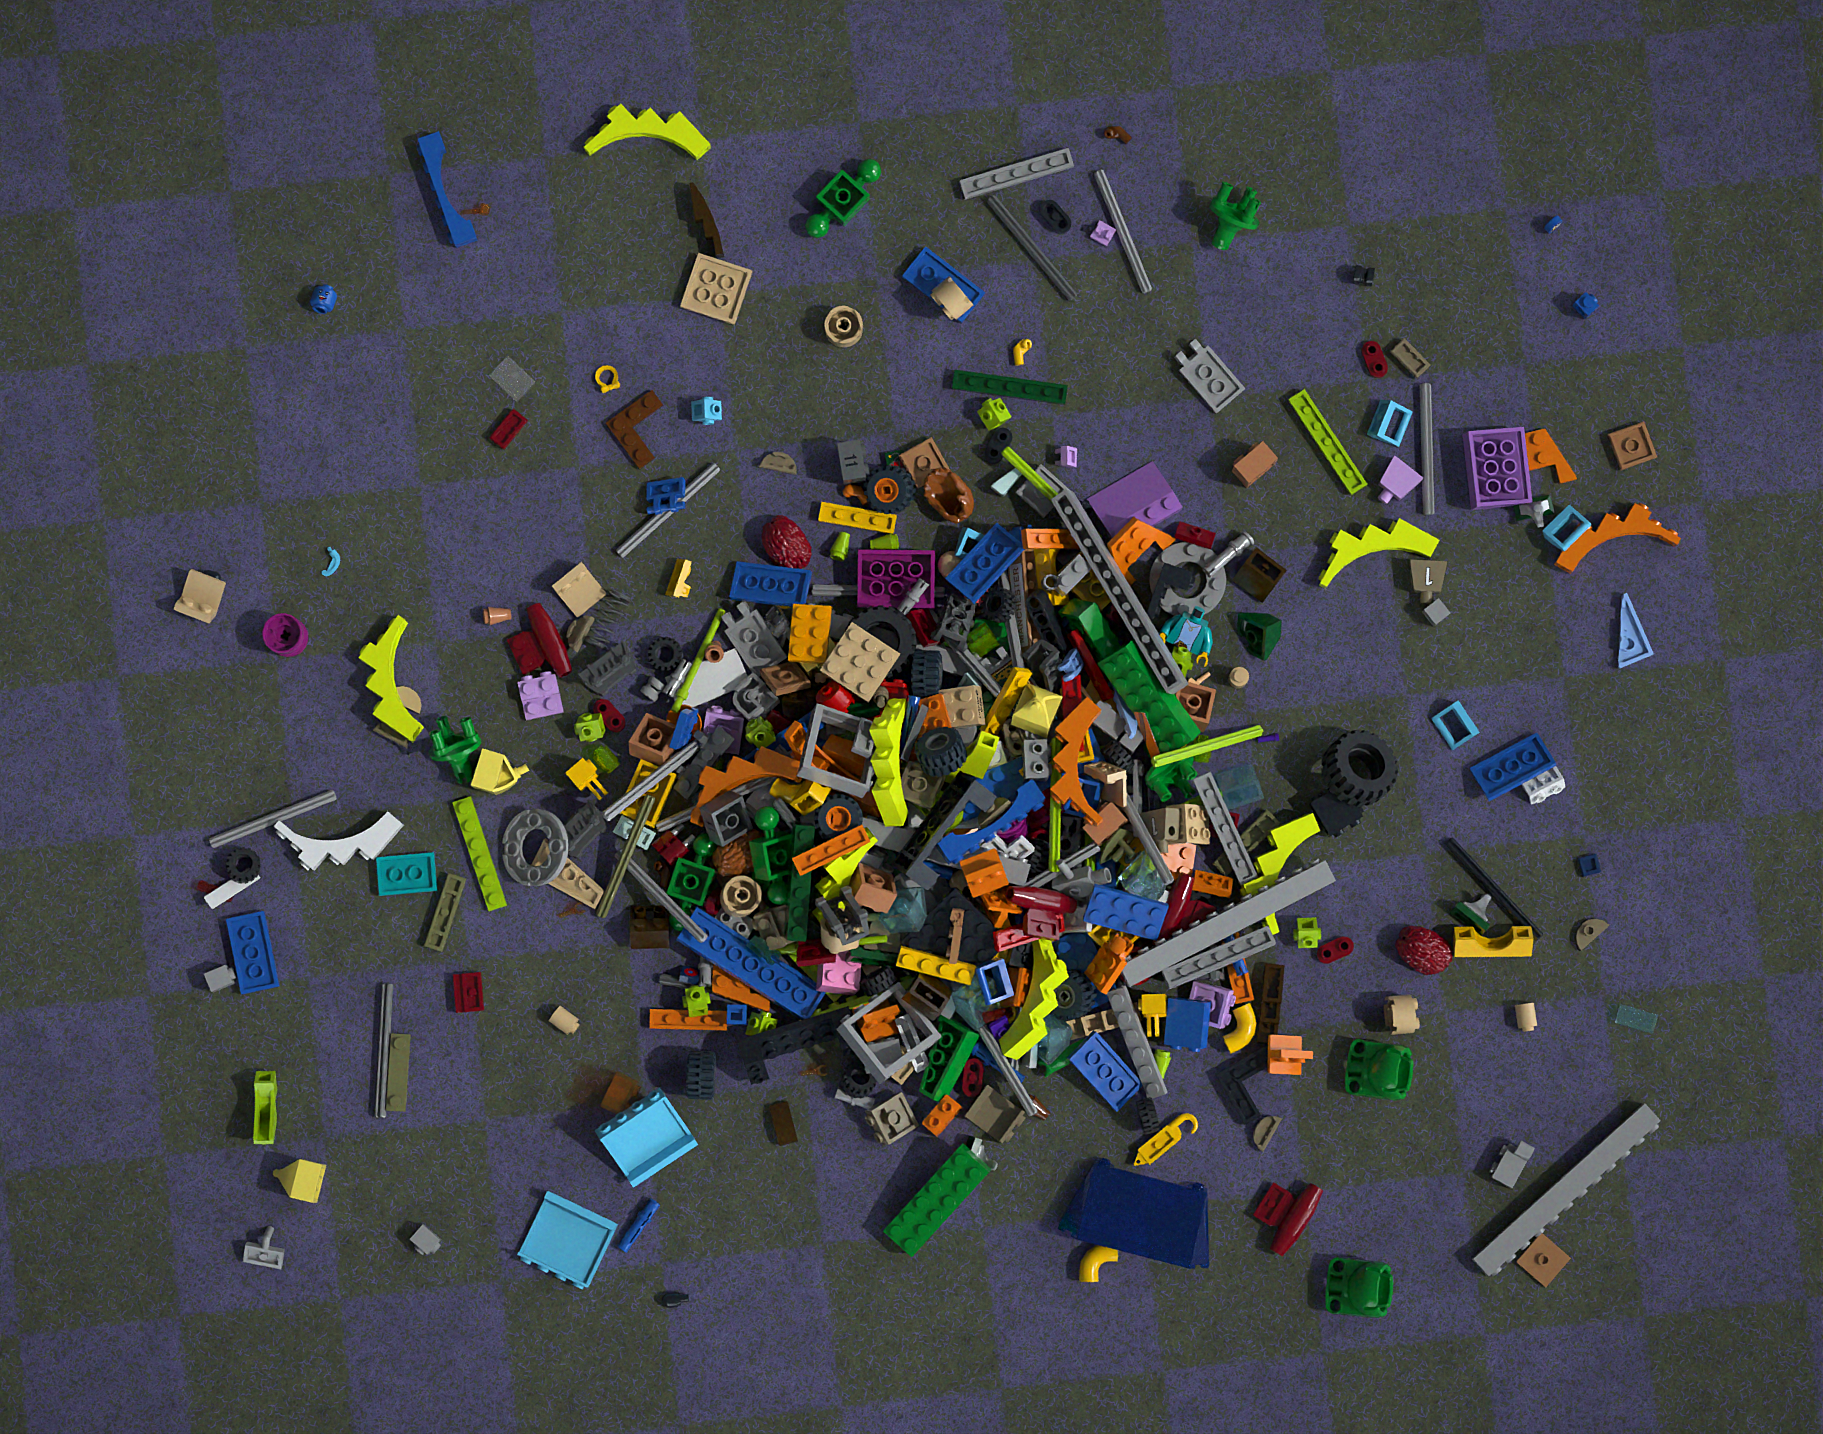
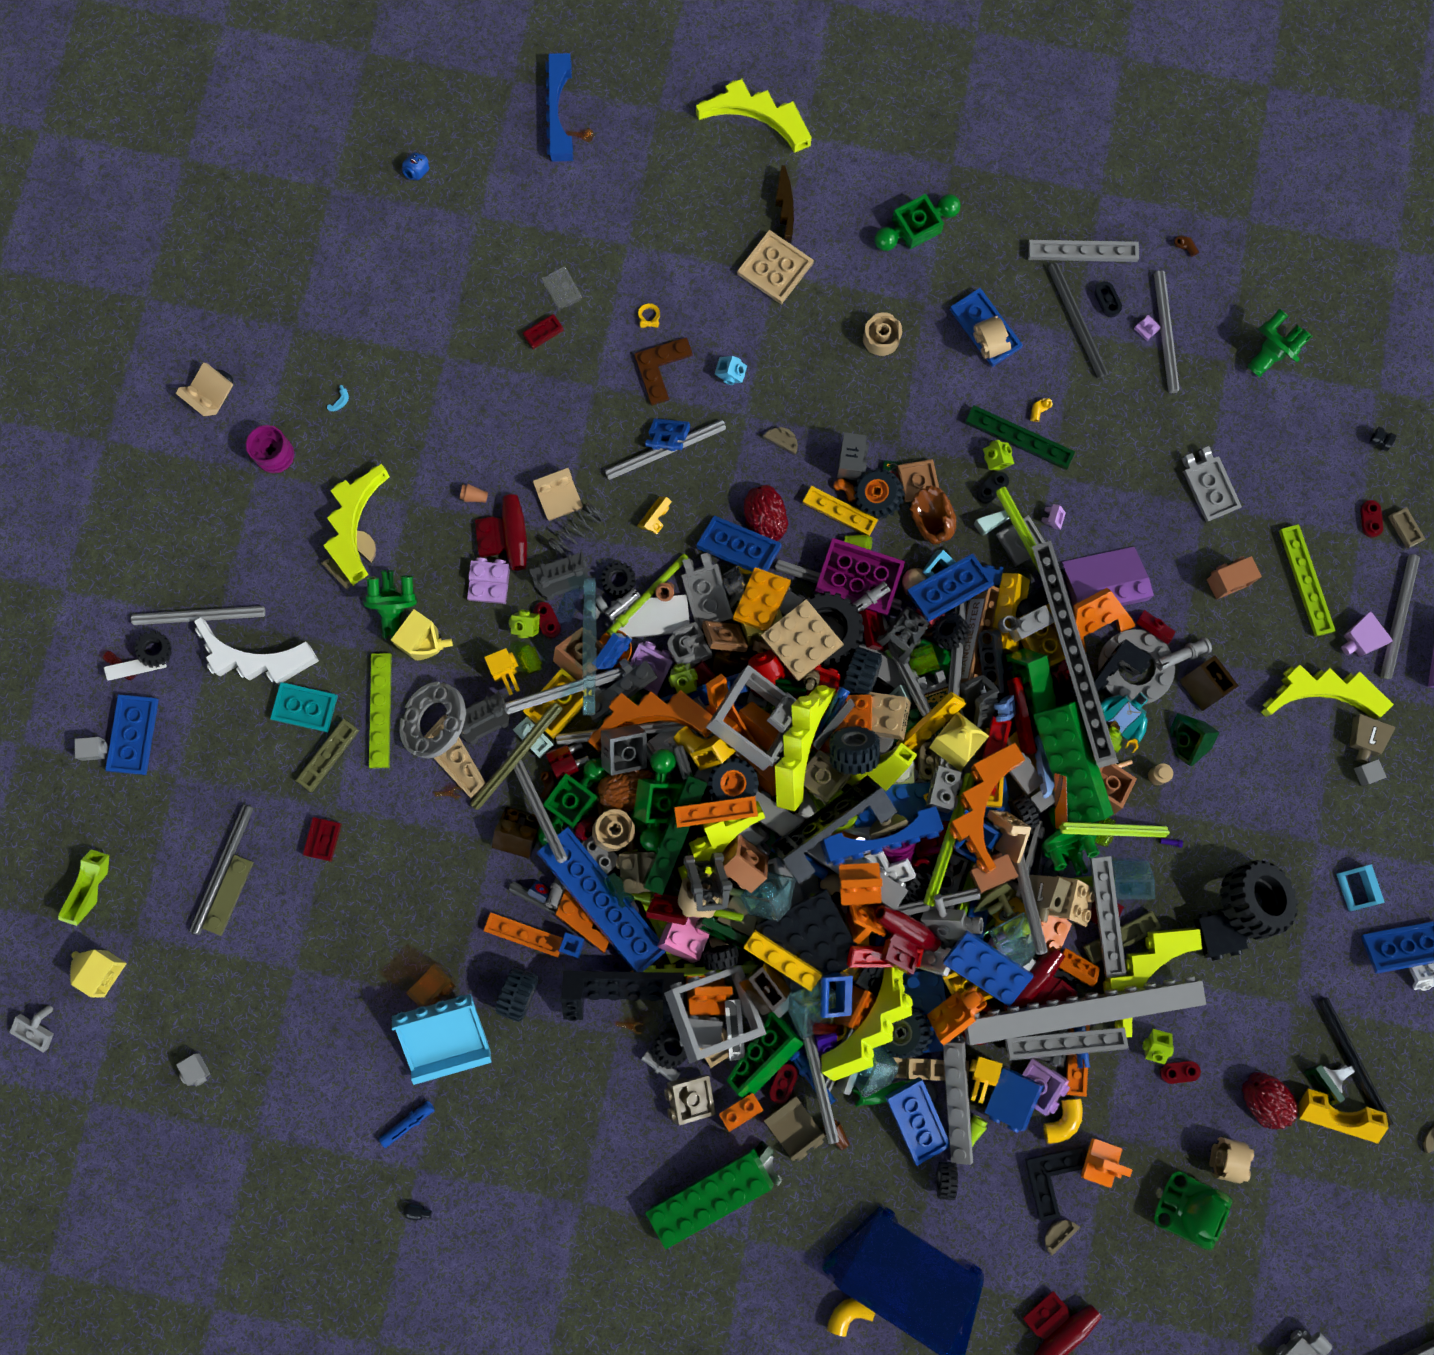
camera: 15 degrees right, 5 degrees down
(564, 1020) = (404, 896): tan brick -> none
(567, 1240) = (331, 1116): medium azure panel -> none
(578, 630) = (544, 532): dark tan plate -> none
(662, 735) = (589, 649): none -> clear light blue piece
(696, 1001) = (537, 919): lime brick -> none
(760, 1023) = (592, 961): lime brick -> none
(783, 1123) = (582, 1068): dark brown slope -> none
(839, 550) = (815, 533): lime cone -> none
(955, 934) = (812, 935): medium nougat hinge -> none
(1048, 539) = (1020, 584): orange plate -> none
(1163, 1140) = (954, 1210): yellow plate -> none
(1270, 1002) = (1101, 1104): dark brown slope -> none
(1382, 418) = (1364, 577): medium azure tile -> none
(1526, 1016) = (1355, 1203): tan brick -> none

